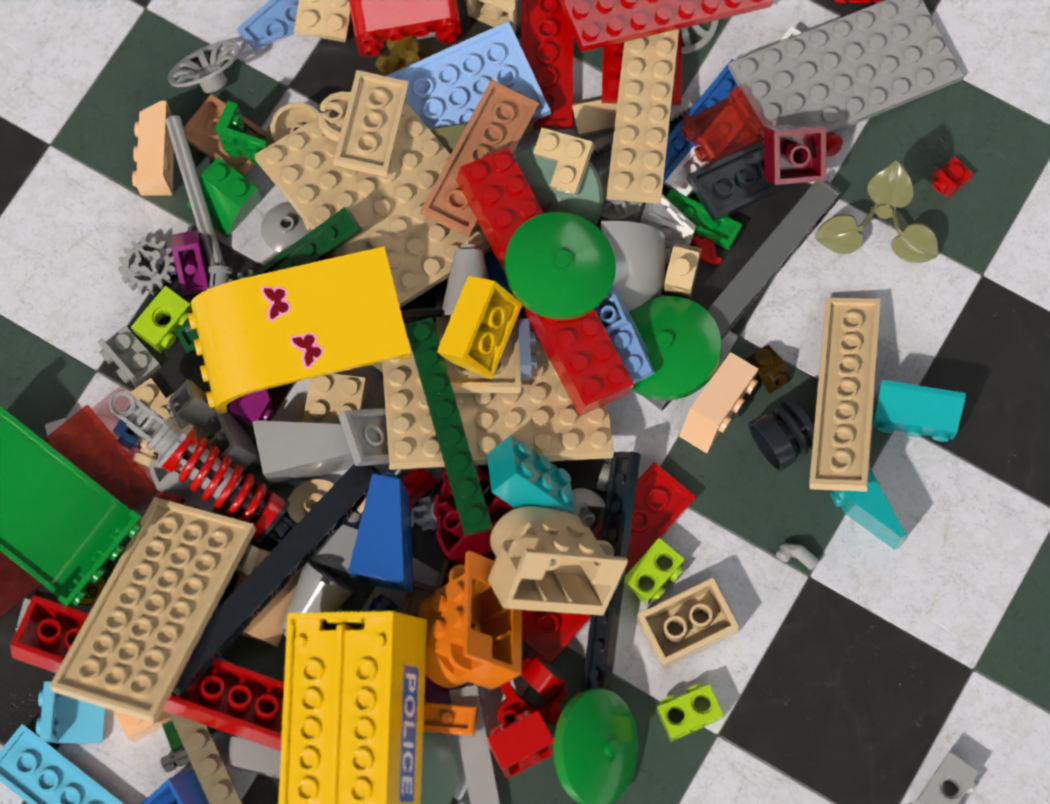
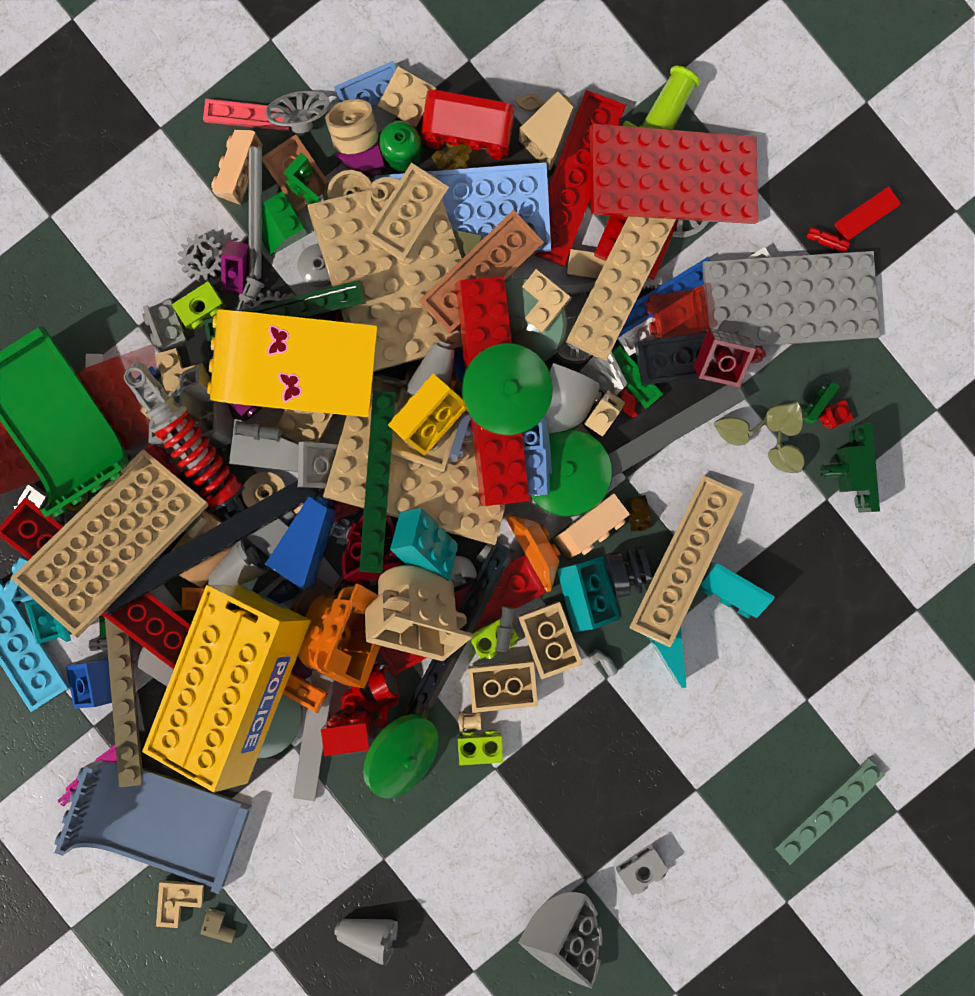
camera: 15 degrees right, 15 degrees up
(104, 745) = (44, 625): none -> teal bracket
(141, 96) = (240, 114): none -> coral tile
(271, 660) = (191, 597): none -> orange plate
(274, 60) = (352, 126): none -> tan wheel
(285, 422) = (258, 431): none -> dark grey pin
(298, 89) = (367, 162): none -> magenta slope
(335, 62) = (401, 151): none -> green cylinder
(661, 445) = (537, 548): none -> orange wedge
(664, 551) = (505, 629): none -> dark grey pin
(664, 684) = (469, 721): none -> tan bush
(722, 548) = (550, 640): none -> tan brick
(746, 481) = (588, 594): none -> teal slope
(923, 179) = (824, 395): none -> green plate
(1001, 224) = (857, 468): none -> dark green brick

